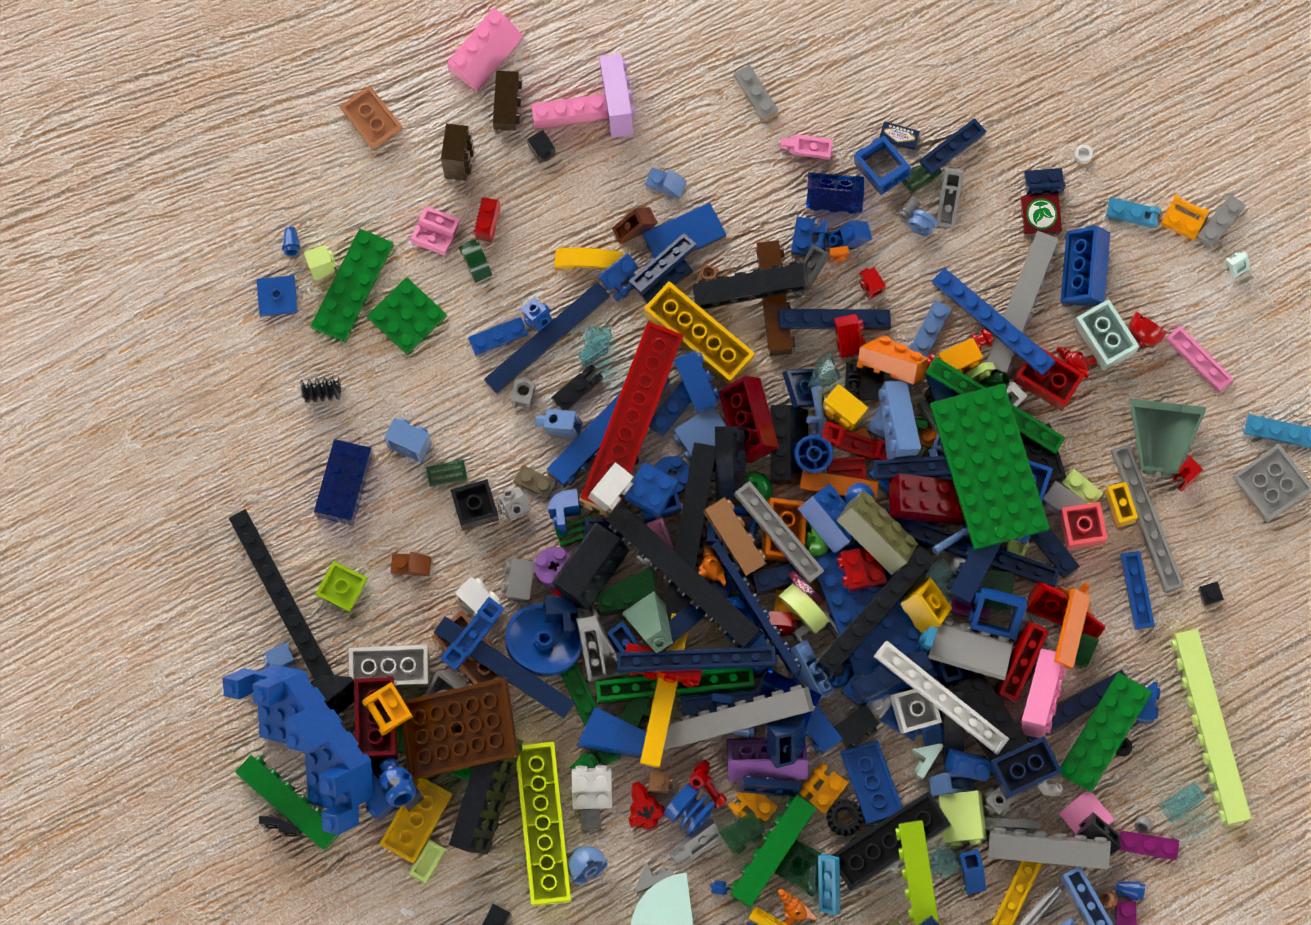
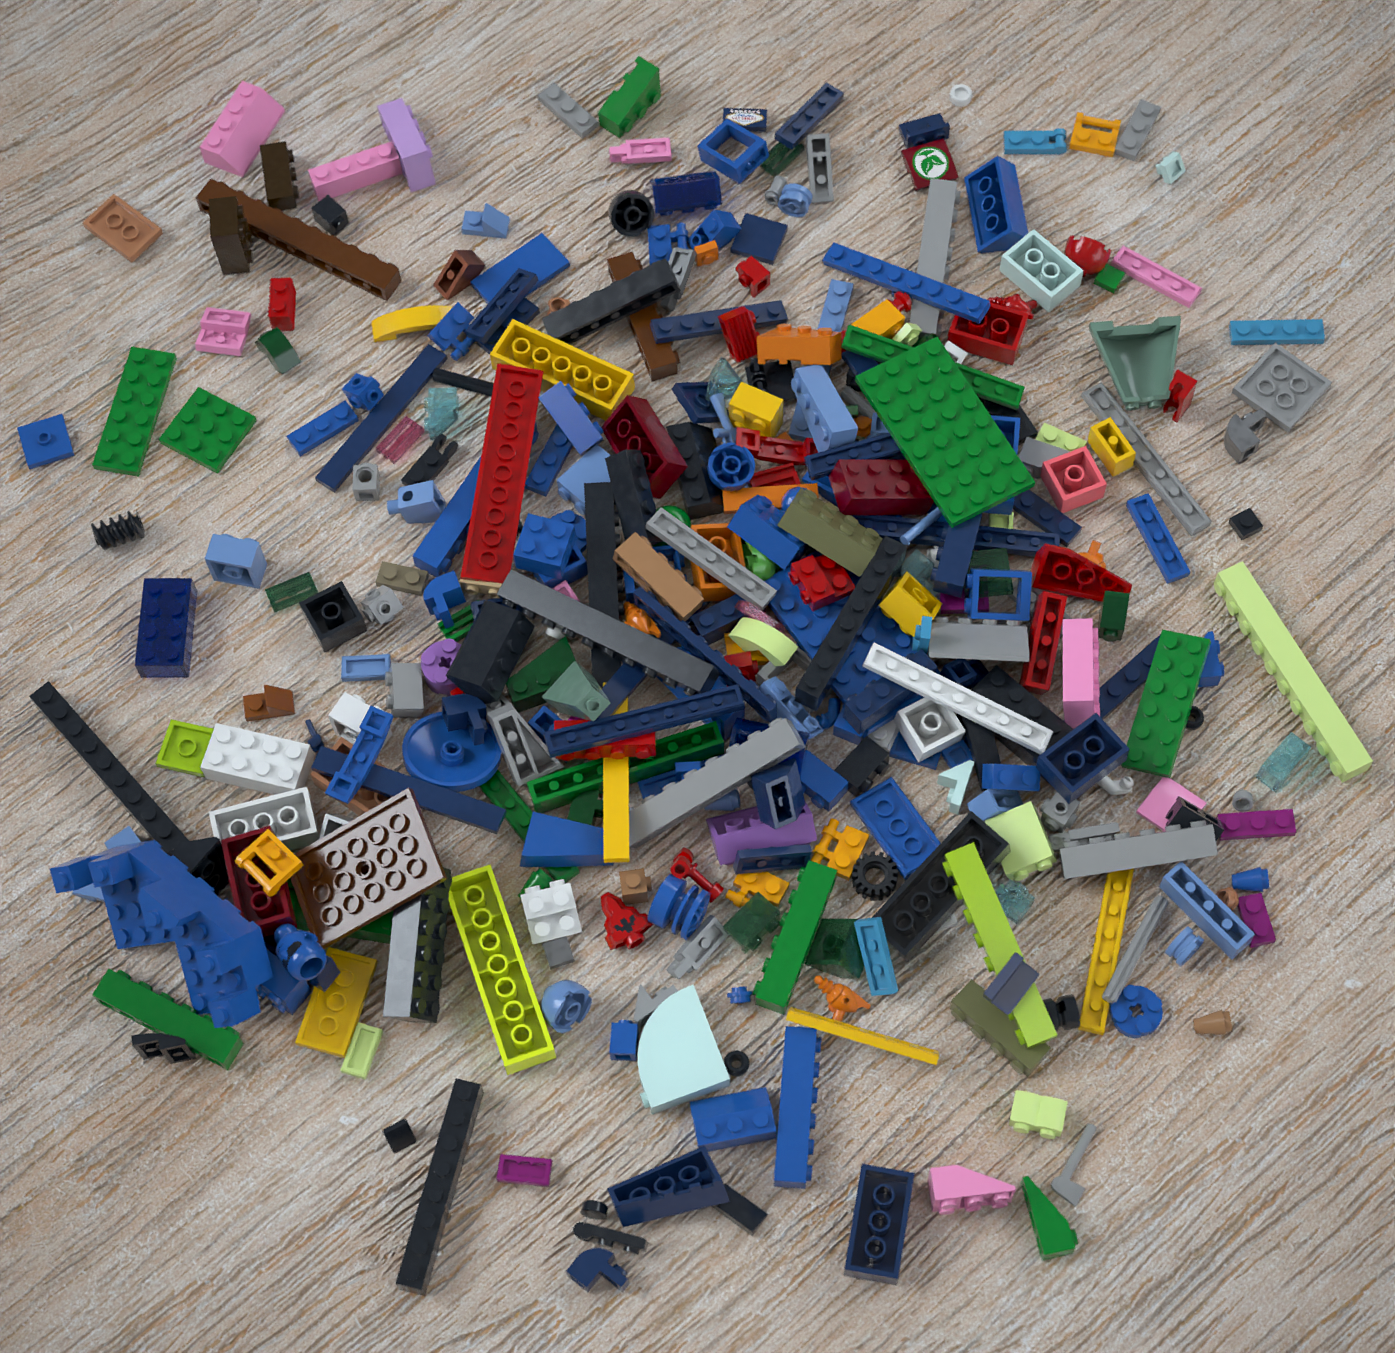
camera: 10 degrees left, 10 degrees down
(290, 242) = (51, 379): blue cone -> none
(320, 262) = (90, 389): yellowish green brick -> none
(393, 611) = (256, 760): none -> white brick
(440, 604) = (316, 741): none -> dark blue hand
(491, 551) = (365, 667): none -> medium blue tile
(513, 163) = (309, 243): none -> reddish brown brick
(540, 365) = (410, 436): none -> clear pink tile
(610, 487) = (494, 552): white brick -> none
(619, 322) = (463, 381): none -> black axle
(624, 902) = (624, 1041): none -> blue brick
(785, 204) = (631, 213): none -> black cylinder
(809, 98) = (632, 99): none -> green wedge
(885, 249) = (759, 238): none -> dark blue tile
(972, 871) = (1050, 902): blue slope -> none
(1072, 629) = (1094, 587): orange tile -> none
(1161, 352) = (1109, 278): none -> green tile
(1225, 518) = (1240, 435): none -> flat silver brick

